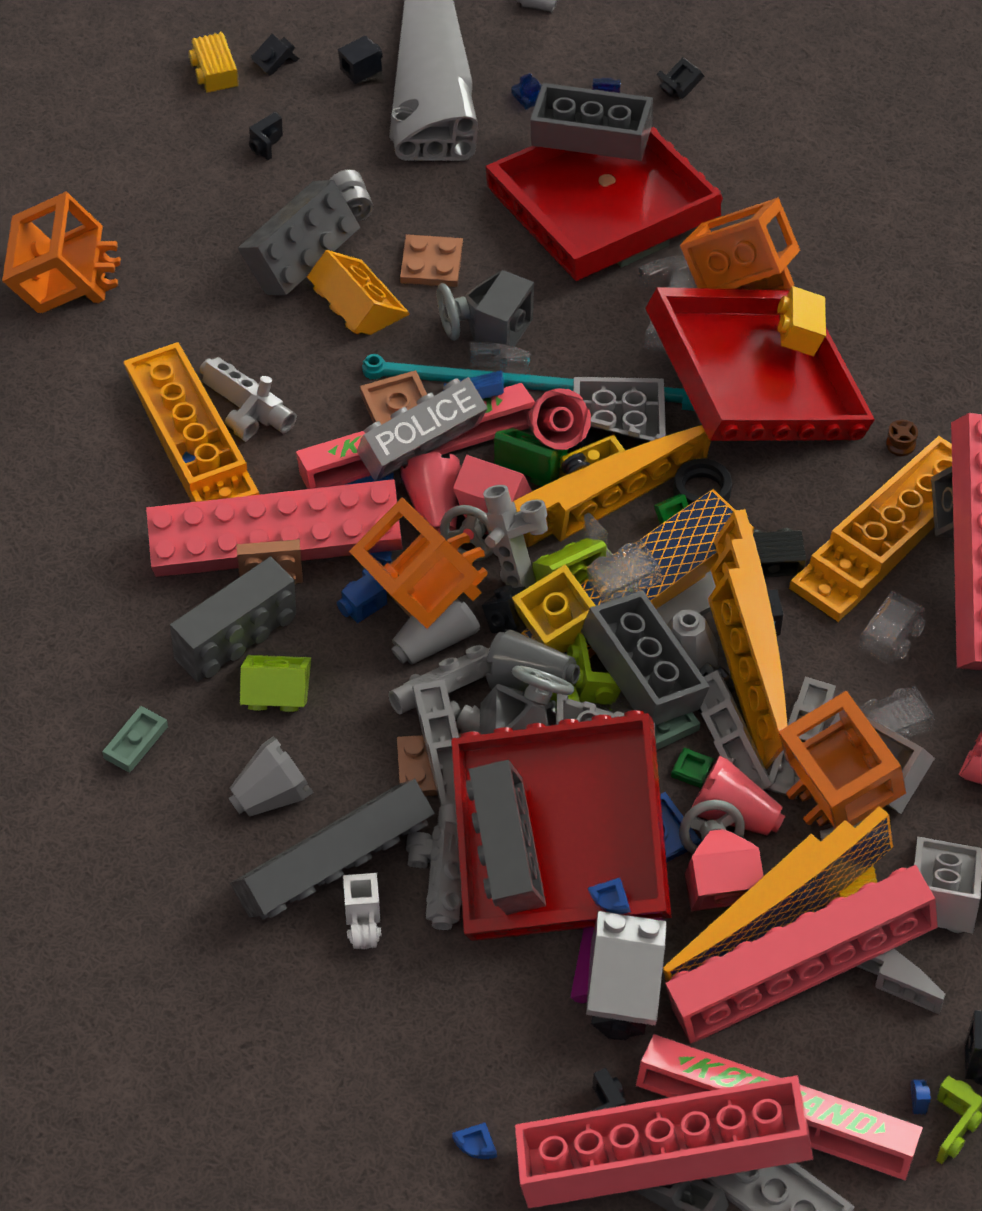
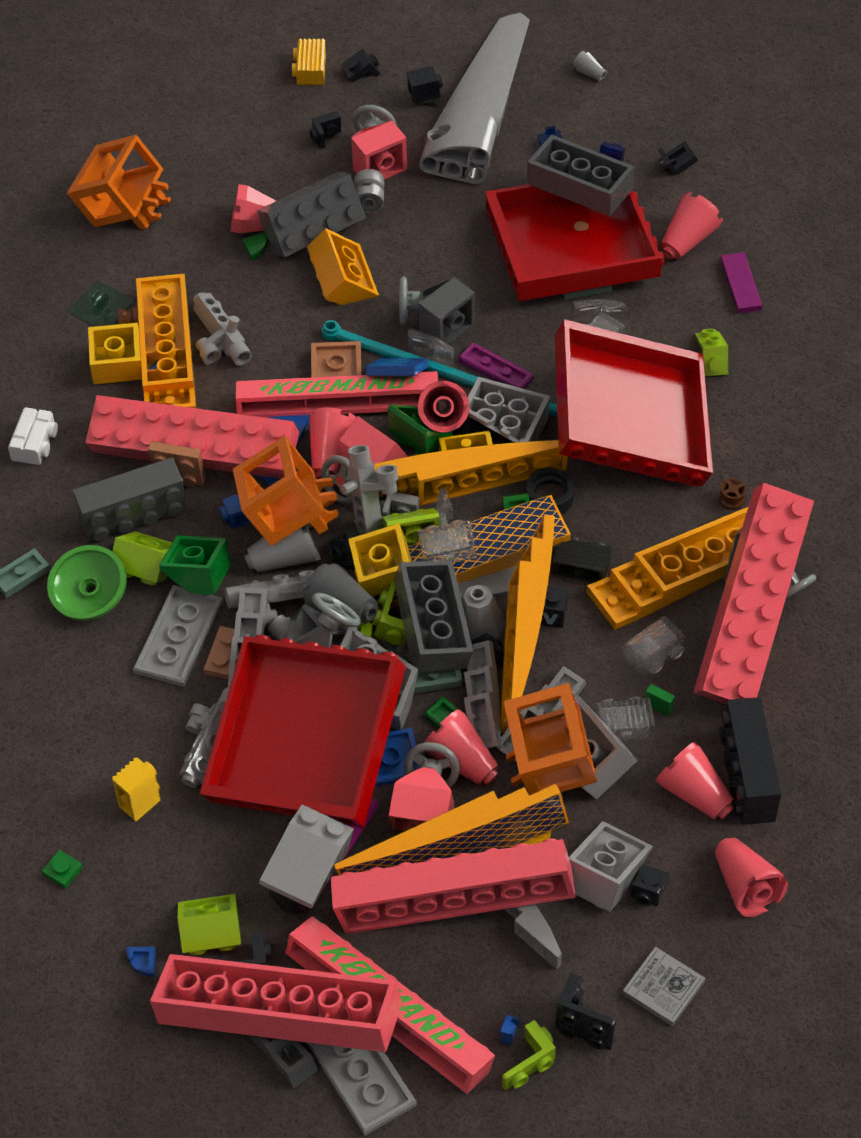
camera: 20 degrees right, 0 degrees up
(79, 576) = (32, 436): none -> white brick
(89, 404) = (100, 305): none -> clear green piece
(133, 411) = (128, 316): none -> reddish brown wheel
(137, 454) = (115, 353): none -> yellow brick
(220, 250) = (245, 214): none -> coral cone
(220, 710) = (77, 573): none -> bright green dish
(241, 289) = (255, 245): none -> green tile
(268, 781) = (103, 633): light grey cone -> none
(337, 1066) = (62, 869): none -> green plate
(339, 138) = (378, 143): none -> coral piece
(339, 845) = (124, 698): dark grey brick -> none
(344, 671) = (197, 563): none -> green slope
(350, 757) = (178, 636): none -> light grey tile
(362, 909) = (131, 743): white brick -> none
(390, 948) = (136, 788): none -> yellow brick
(421, 428) = (332, 386): light grey brick -> none
(431, 260) = (413, 257): nougat plate -> none
(506, 837) = (250, 725): dark grey brick -> none
(537, 1077) = (209, 924): none -> lime slope
(545, 544) = (399, 504): none -> light grey bracket
(574, 463) = (443, 444): black bush -> none
(577, 361) = (495, 366): none -> magenta tile
(610, 896) = (316, 795): blue tile -> none
(729, 149) = (689, 226): none -> coral cone
(742, 253) = (649, 309): orange piece -> none
(802, 320) = (682, 376): yellow brick -> none
(807, 202) = (741, 282): none -> magenta tile
(815, 281) = (714, 352): none -> lime bracket
(927, 684) = (660, 700): none -> green tile

